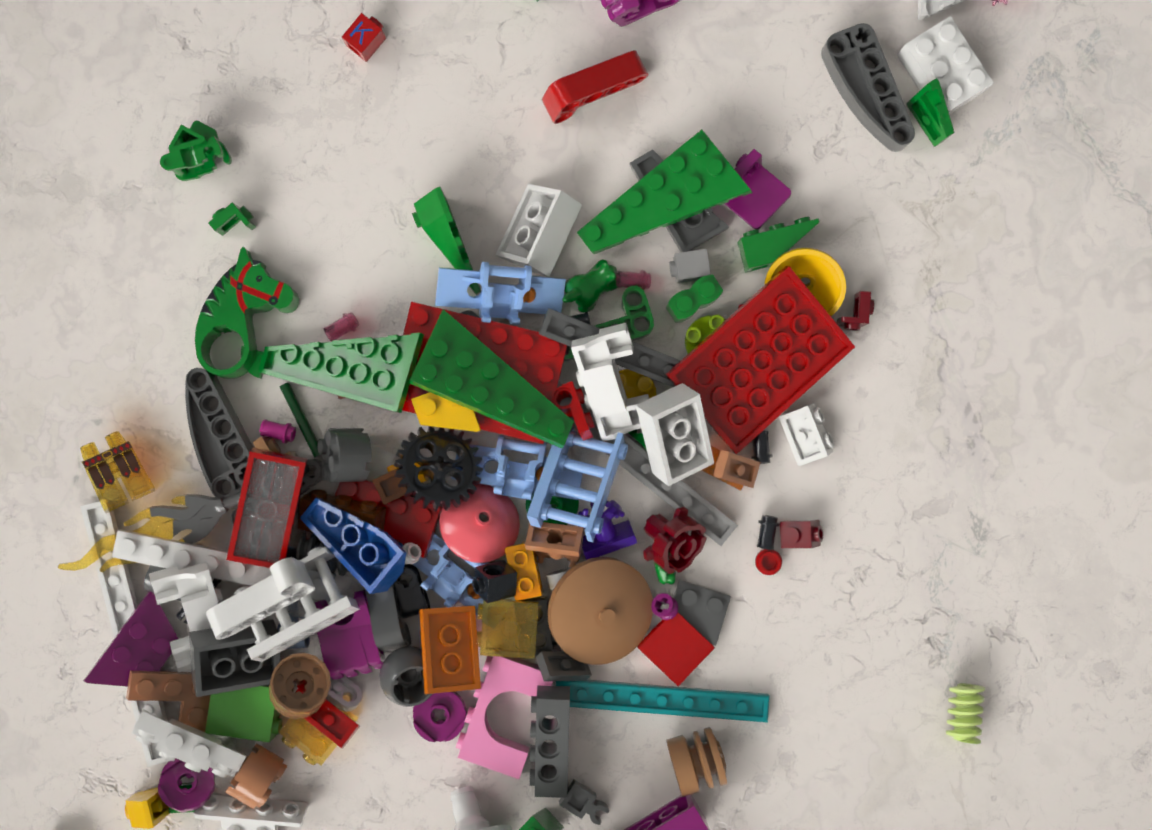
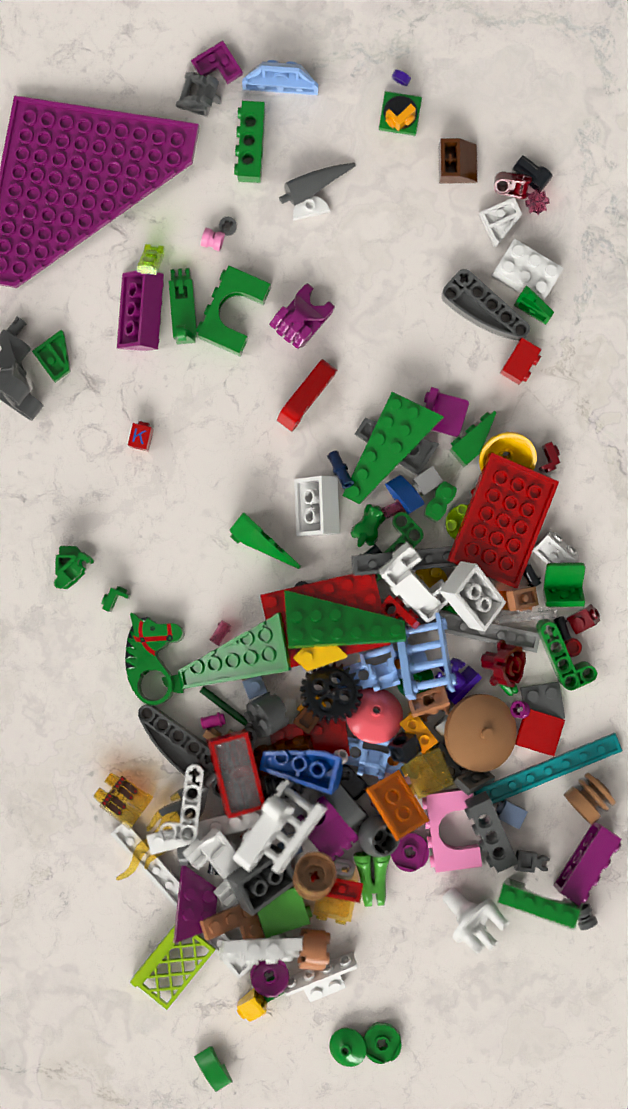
camera: 30 degrees left, 0 degrees up
(60, 689) = (157, 957): none -> lime fence
(186, 513) = (186, 803): none -> white beam
(349, 413) = (254, 686): none -> sand blue brick
(366, 734) = (363, 864): none -> bright green piece
(500, 300) = (333, 552): light blue piece -> none
(589, 730) = (511, 813): none -> sand blue brick
(590, 197) = (340, 469): none -> dark blue pin
(656, 268) = (405, 493): none -> blue slope
(731, 492) = (526, 615): none -> clear wing
(751, 561) = (561, 652): none -> green beam
(797, 478) = (564, 585): none -> green bracket
(881, 174) = (520, 361): none -> red brick

